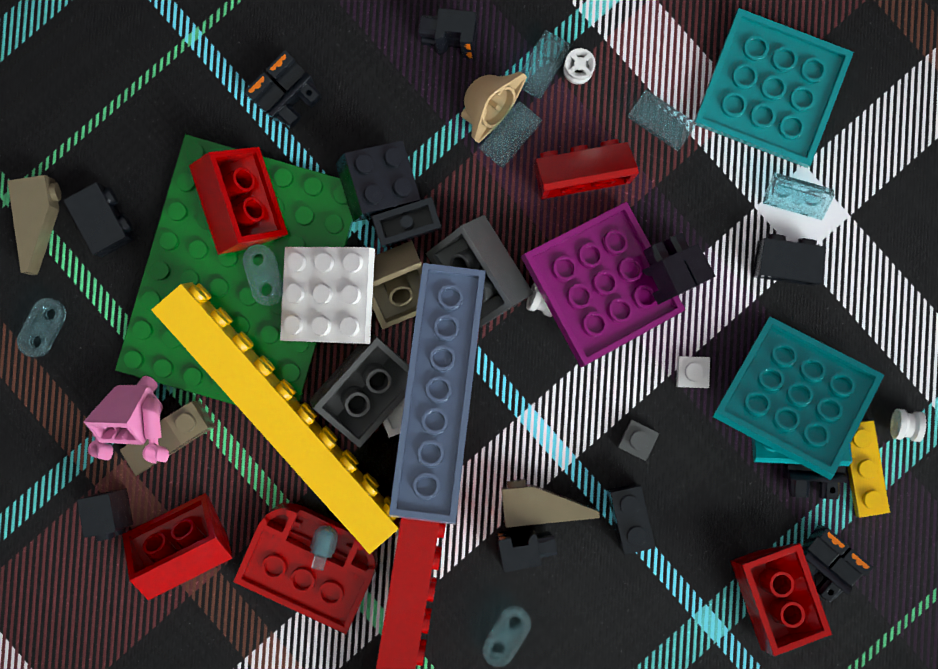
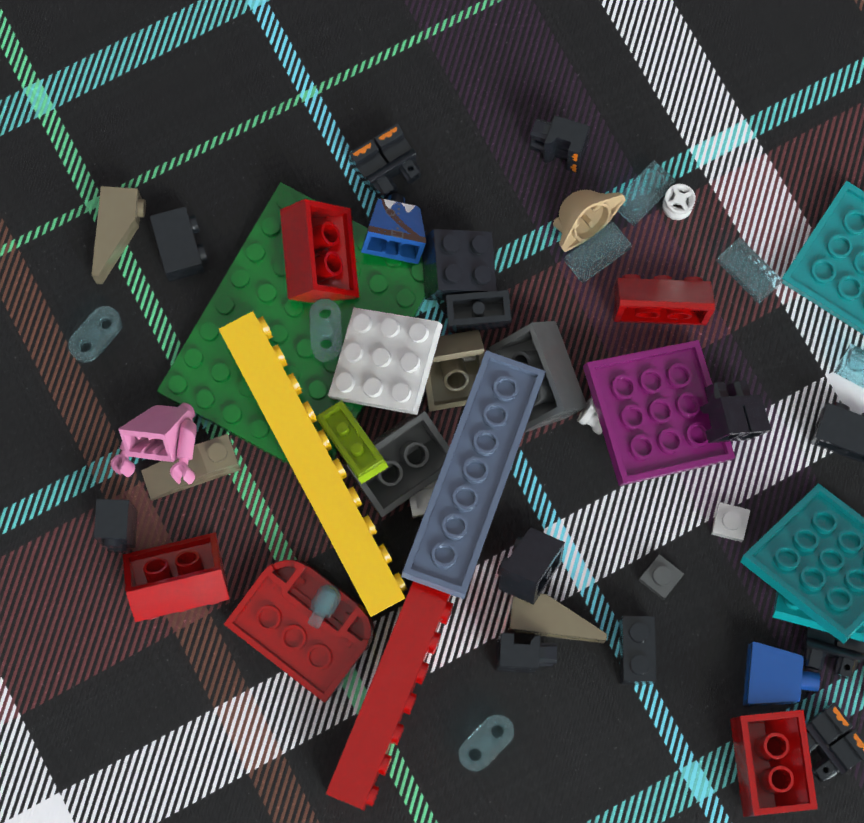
camera: 10 degrees right, 10 degrees down
(307, 159) = (395, 231): none -> blue torso
(312, 384) = (351, 442): none -> lime tile
(512, 462) = (530, 565): none -> black brick
(766, 513) = (775, 676): none -> blue torso

